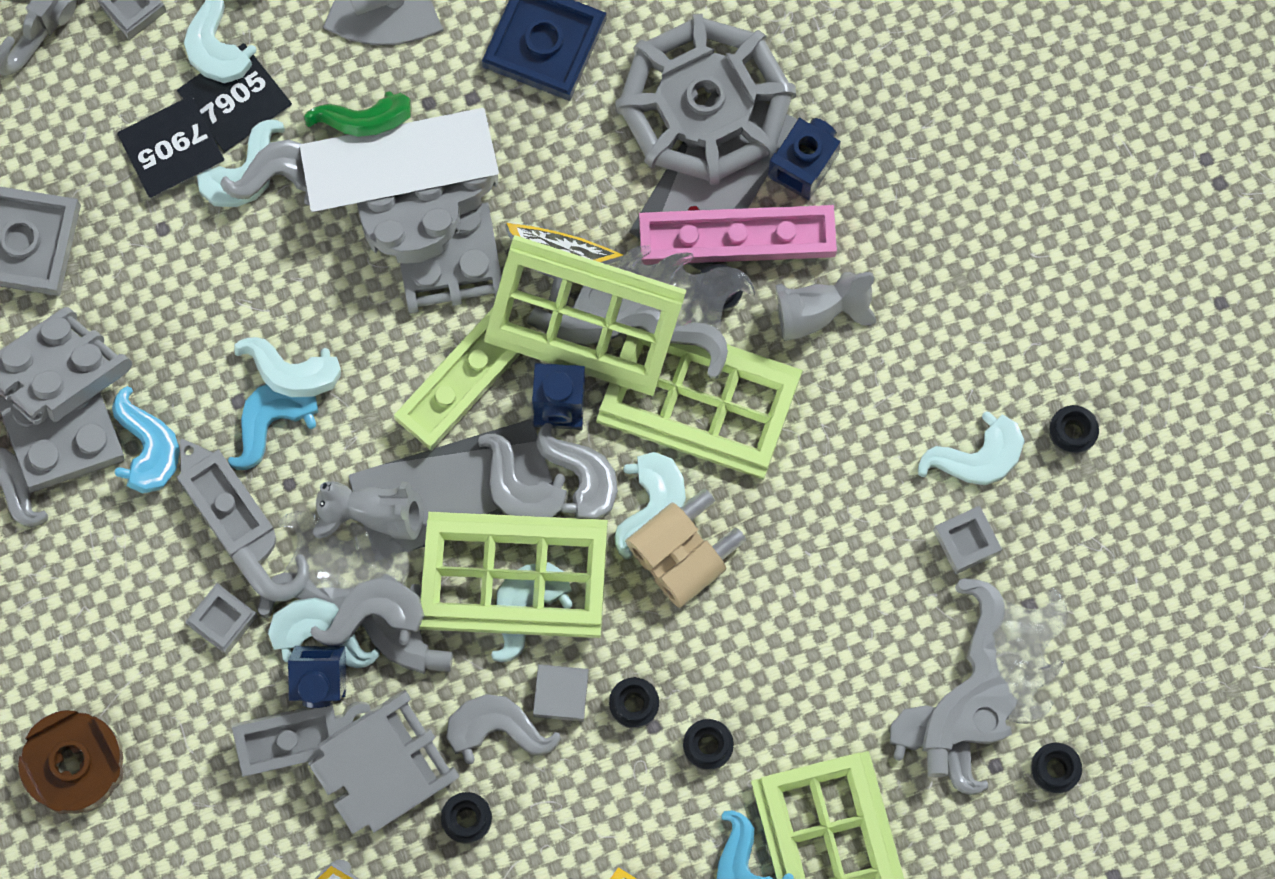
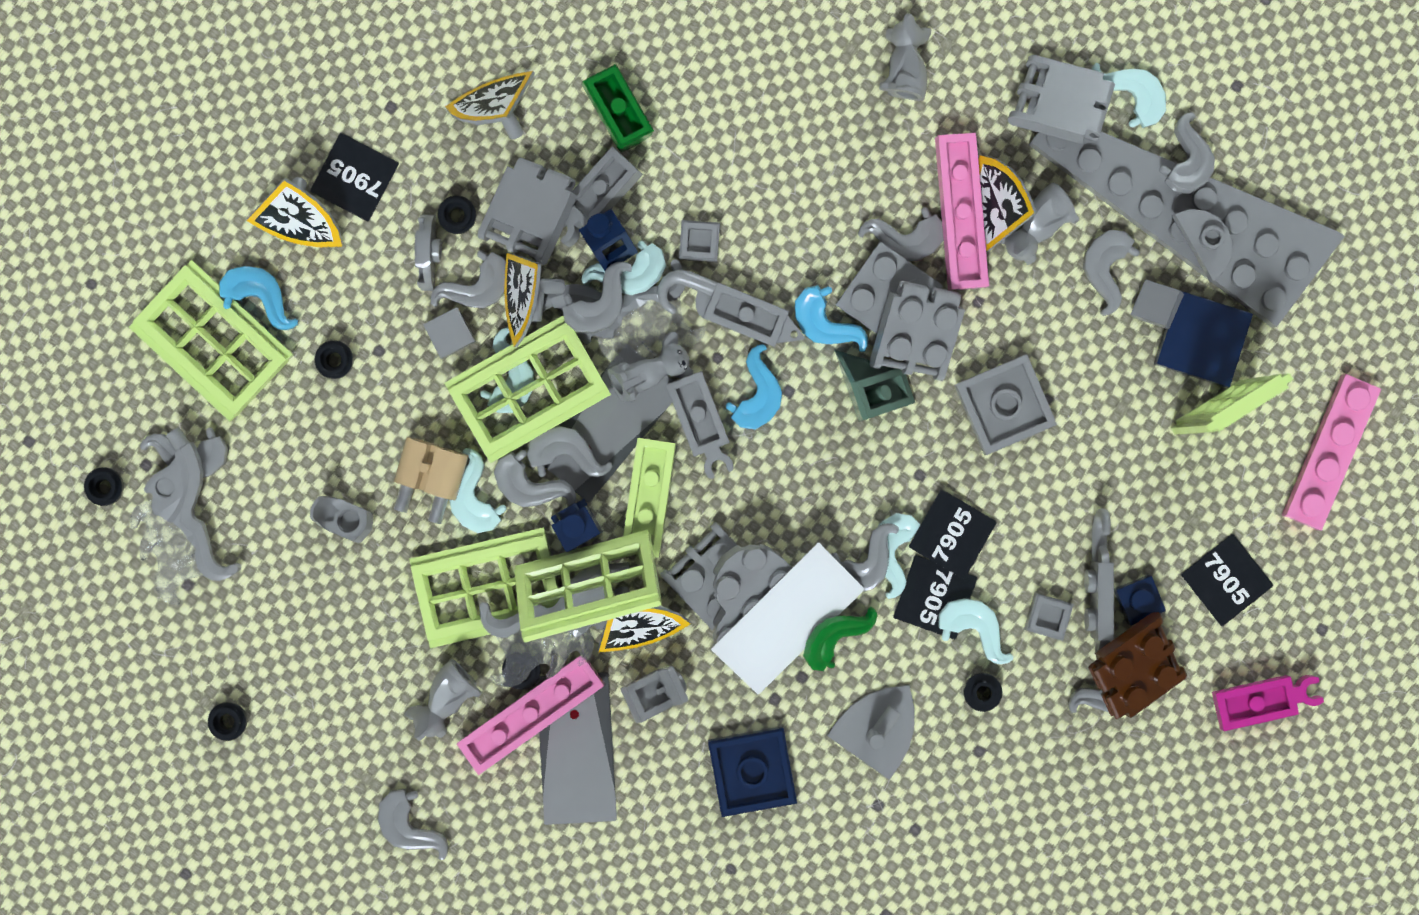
camera: 150 degrees right, 15 degrees up
(43, 754) = (724, 66): reddish brown plate -> none
(151, 339) = (873, 389): none -> sand green slope
(208, 818) = (618, 108): none -> green brick
(293, 380) = (757, 425): light aqua piece -> none
(351, 424) = (700, 419): none -> light grey plate
(448, 672) = (525, 294): none -> shield
(523, 797) = (427, 251): none -> light grey plate
(590, 175) = (655, 693): none -> light grey bracket
(637, 687) = (386, 356): black plate -> none
(698, 124) = (619, 820): light grey plate -> none
(802, 171) = (524, 785): dark blue brick -> none
(807, 563) = (342, 518): none -> light grey hair
(959, 210) = (396, 828): none -> light grey piece
(967, 540) = (250, 600): light grey plate -> none
(990, 464) = (268, 666): light aqua piece -> none

